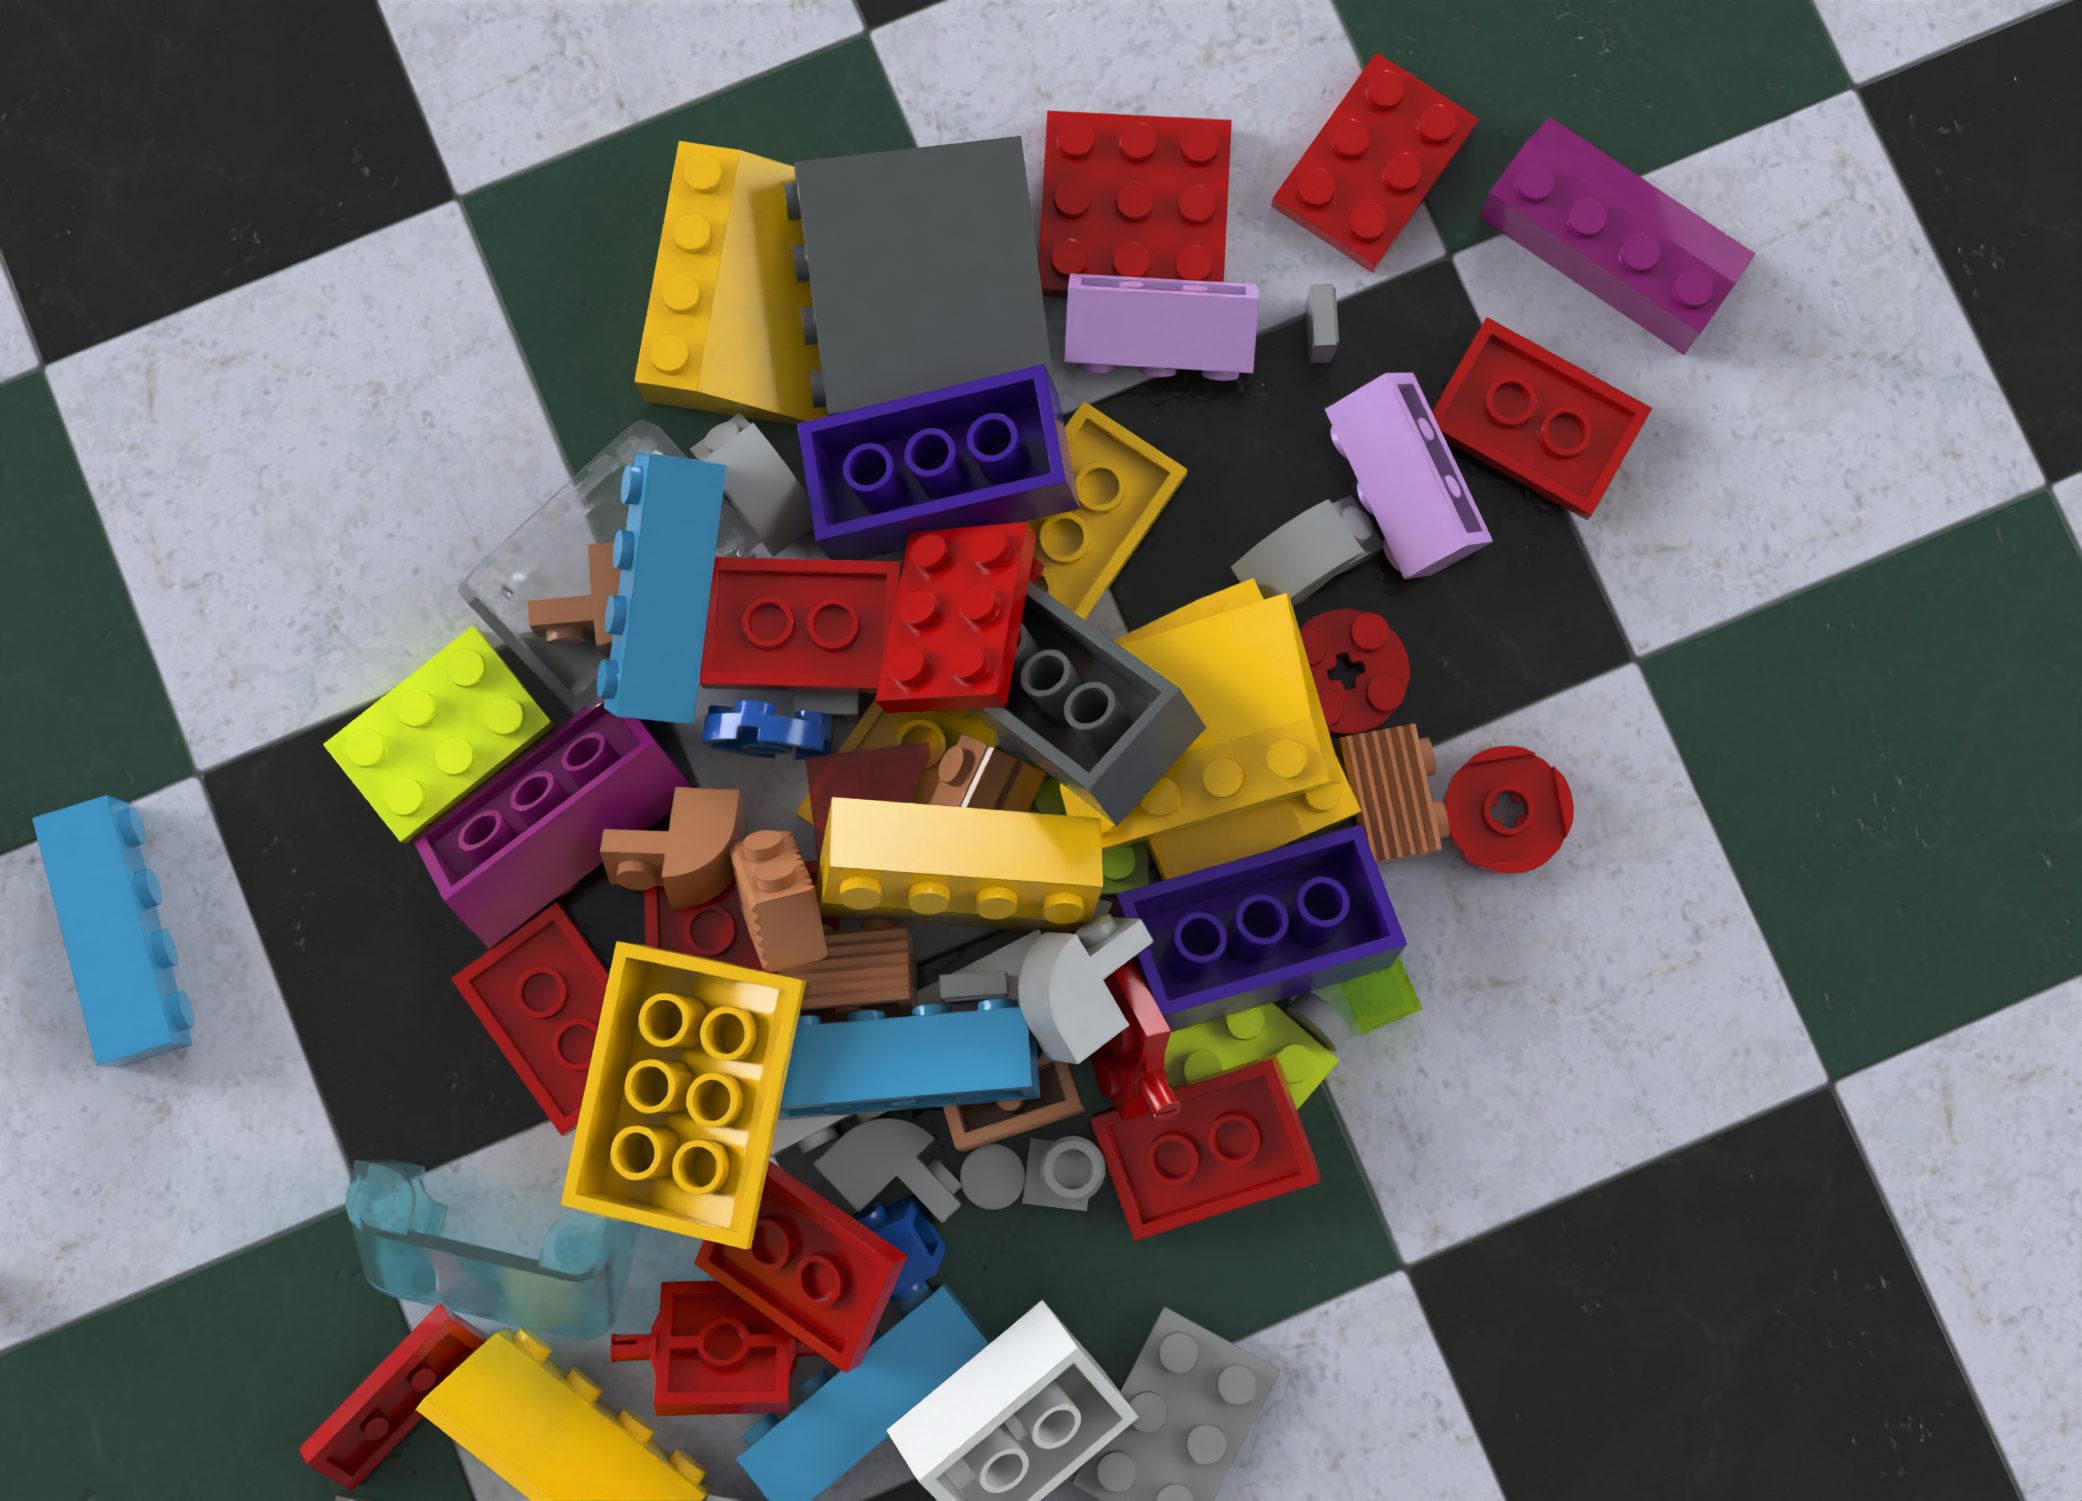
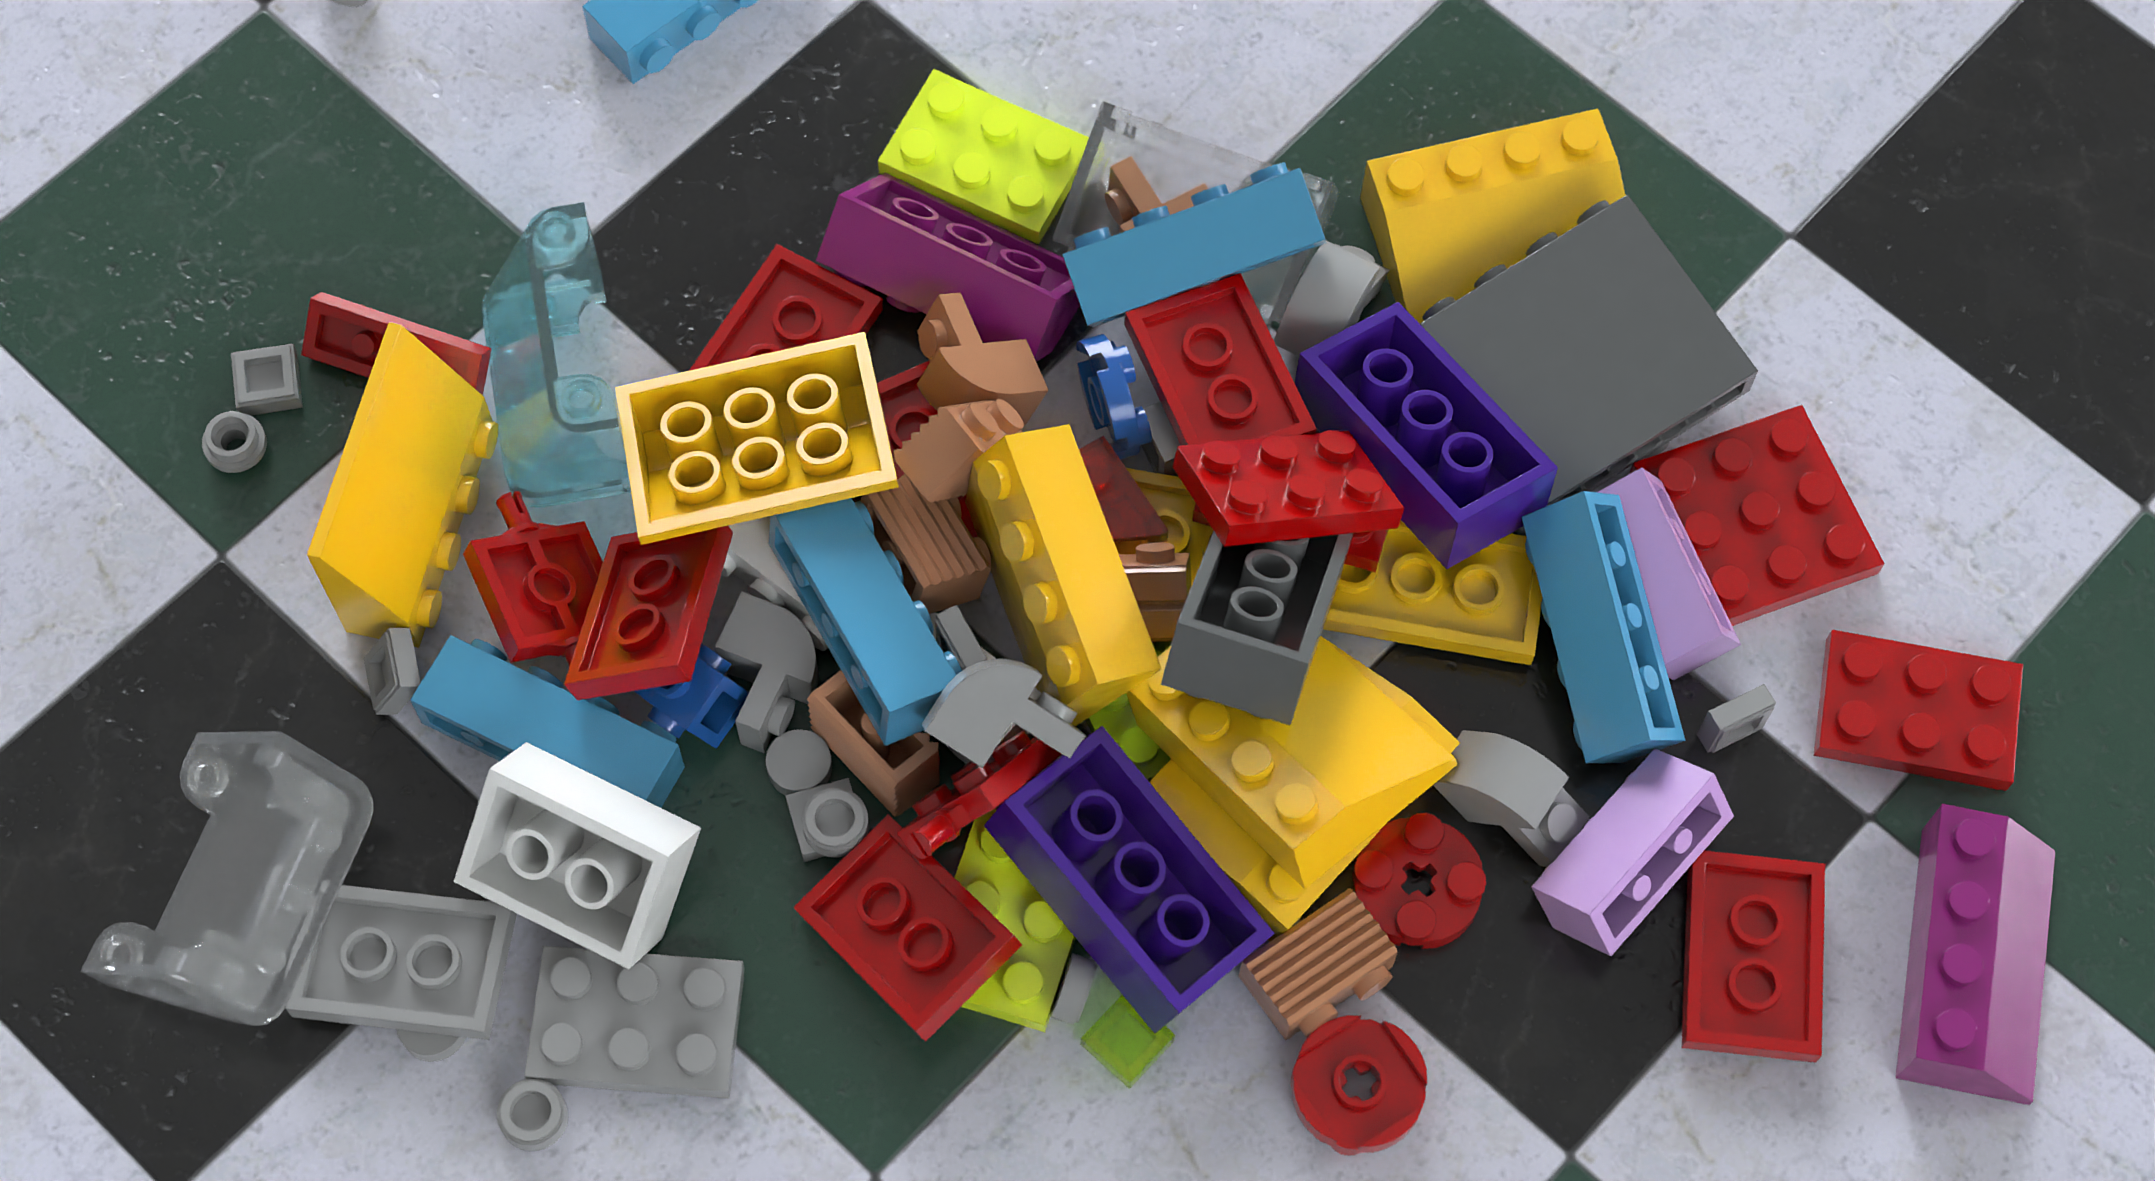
camera: 60 degrees right, 15 degrees down
(1197, 399) = (1602, 628): none -> dark azure brick

